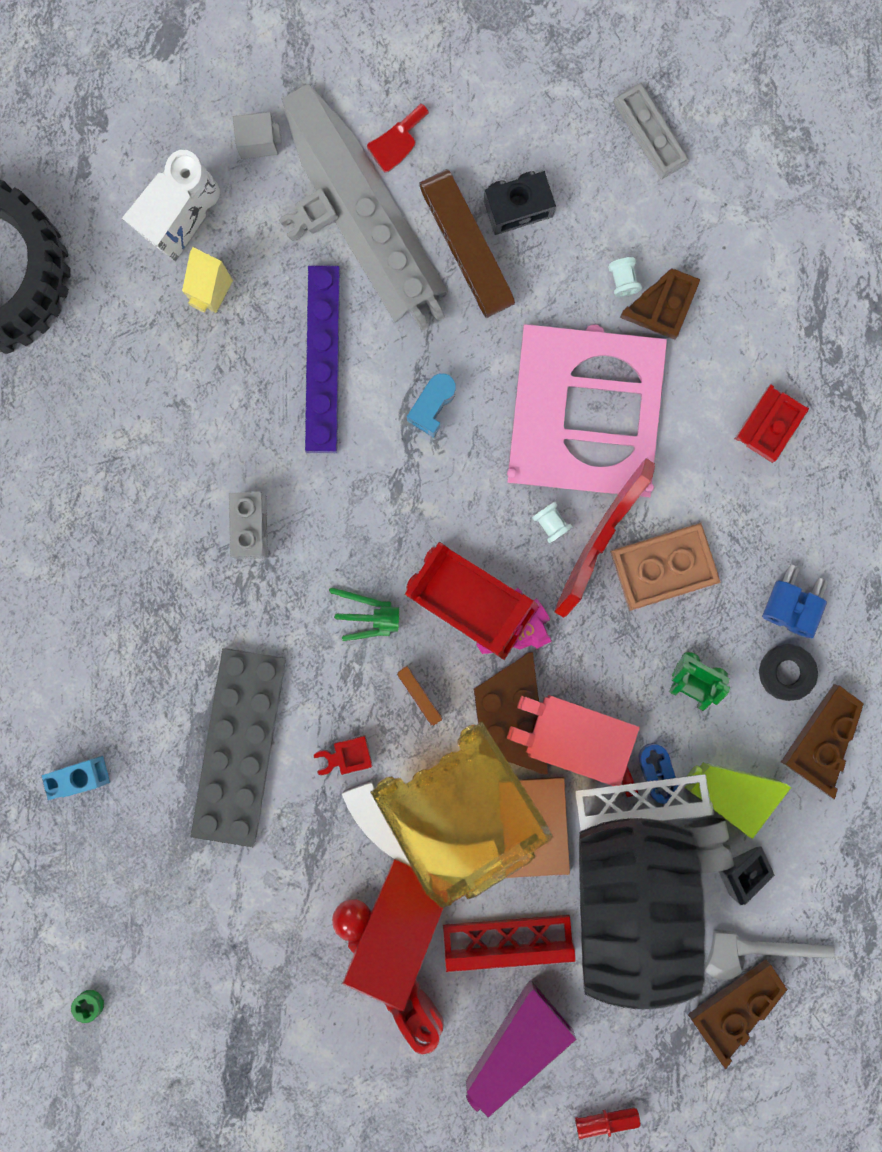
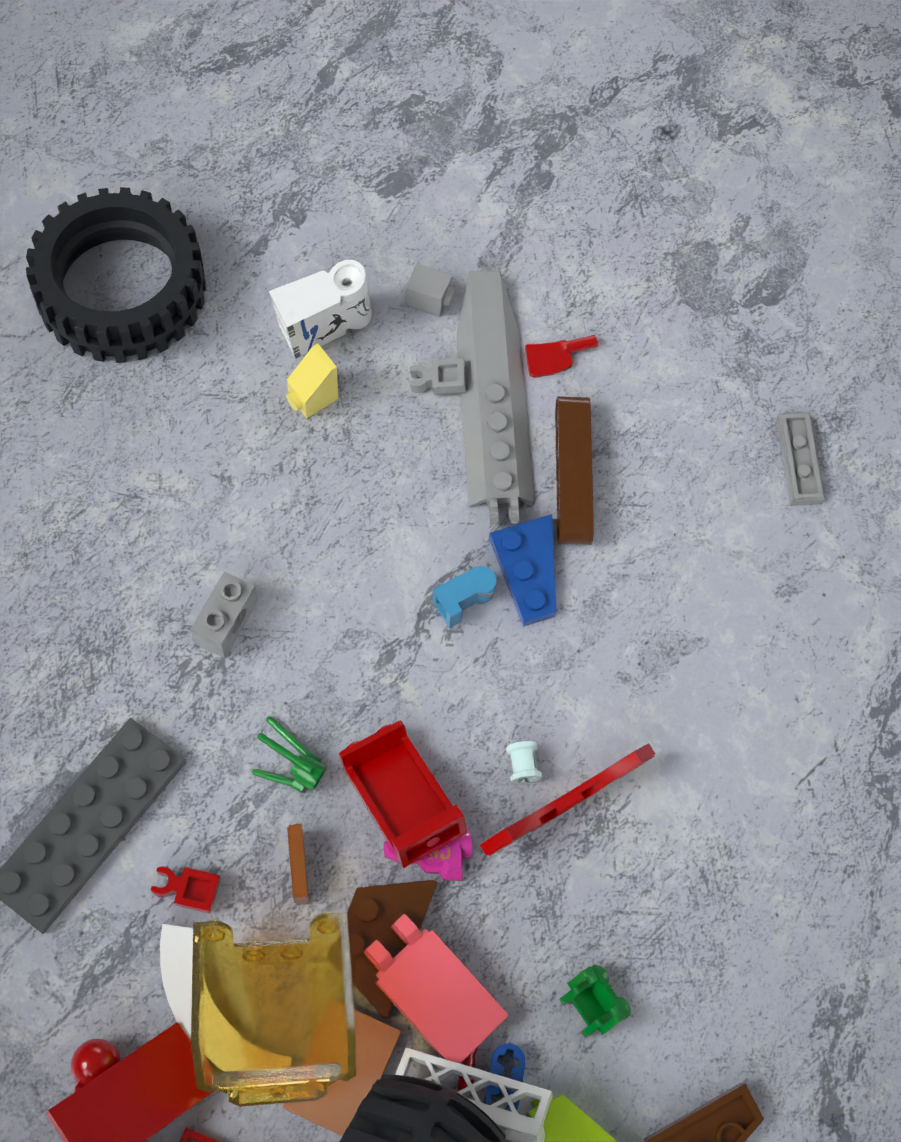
camera: 20 degrees right, 20 degrees down
(322, 359) = (380, 507): dark purple plate -> none
(471, 351) = (527, 565): none -> blue wing
(508, 216) = (627, 466): black brick -> none
(538, 426) = (556, 671): bright pink door -> none
(625, 277) = (711, 571): light aqua bush -> none
(664, 304) = (738, 614): reddish brown wing -> none
(665, 566) = (618, 867): nougat tile -> none
(771, 423) = (794, 779): red plate -> none
(794, 608) = (734, 978): blue piece -> none
(807, 677) = (715, 1031): black tyre -> none

